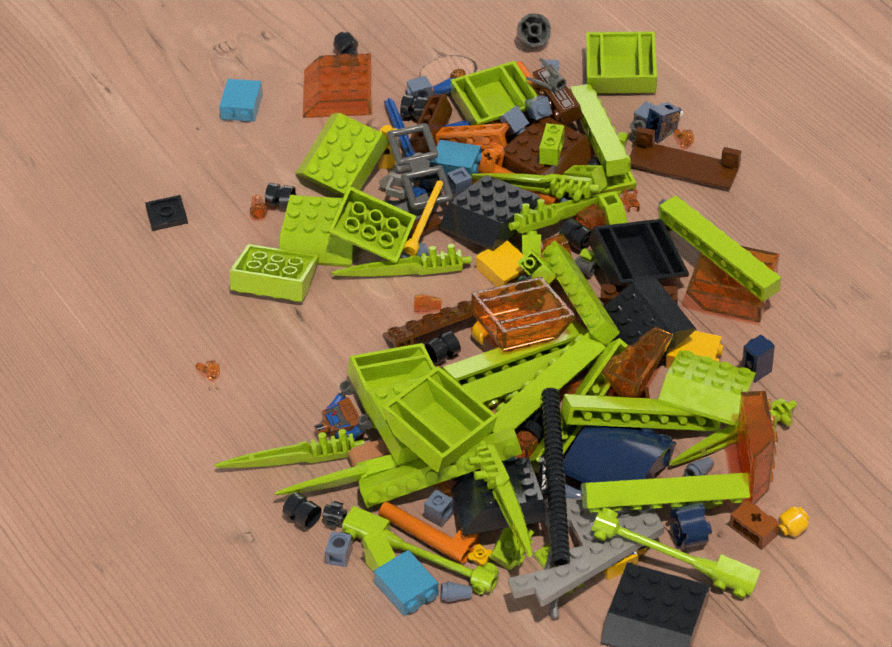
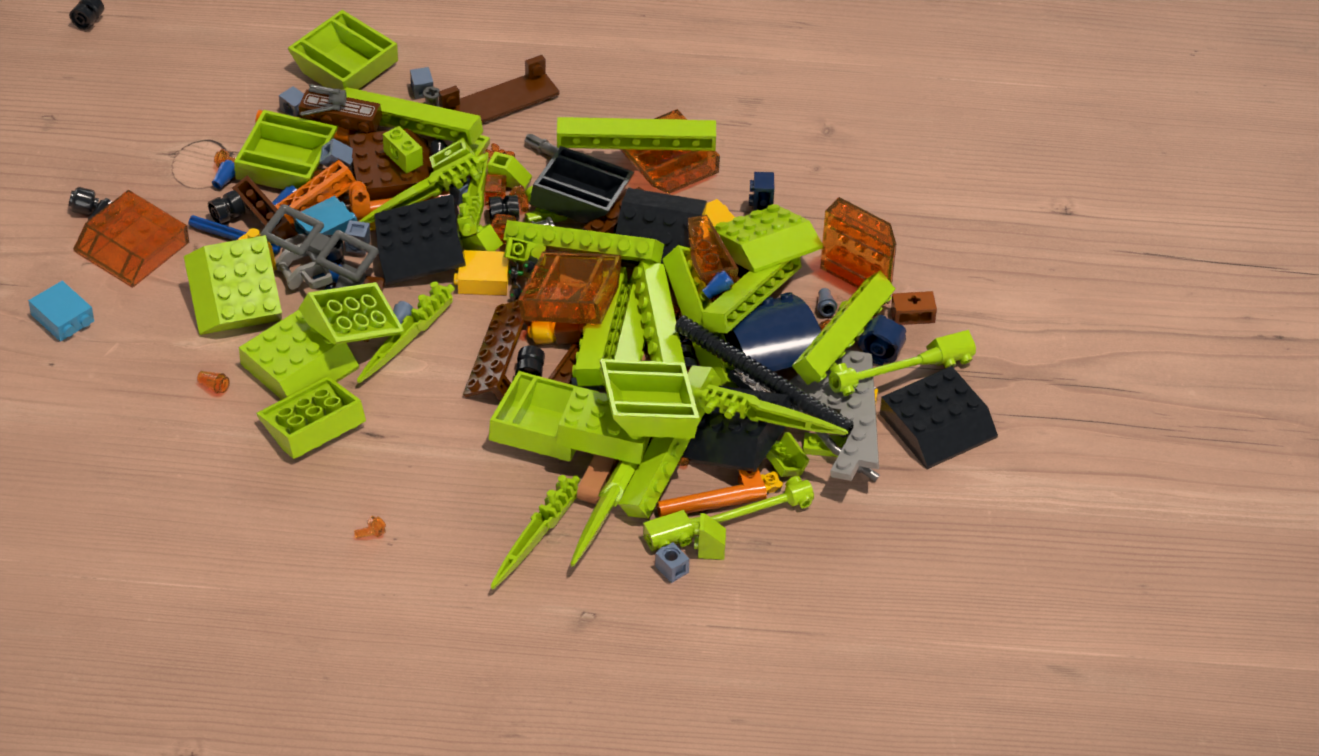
camera: 55 degrees left, 0 degrees up
(166, 212) = (137, 447): black tile -> none
(278, 195) = (223, 357): black wheel -> none
(302, 511) = (607, 560): black wheel -> none
(334, 514) = (633, 542): black gear -> none
(343, 415) = (535, 475): torso -> none
(406, 583) = (753, 542): dark azure brick -> none
(412, 246) = (399, 308): yellow piece -> none
(419, 87) = (205, 190): sand blue brick -> none
(426, 303) = (463, 346): clear orange cone -> none
(438, 508) = (699, 474): sand blue brick -> none
(453, 591) = (791, 519): sand blue cone -> none
(533, 30) = (235, 77): dark grey cylinder -> none
(538, 107) = (344, 129): sand blue brick -> none
(611, 387) = (719, 284): none -> blue cone
(663, 119) = (442, 71): dark blue torso -> none
(685, 136) = (475, 78): clear orange plate -> none
(780, 409) = (812, 261): lime piece -> none
(793, 521) = (935, 281): yellow head -> none

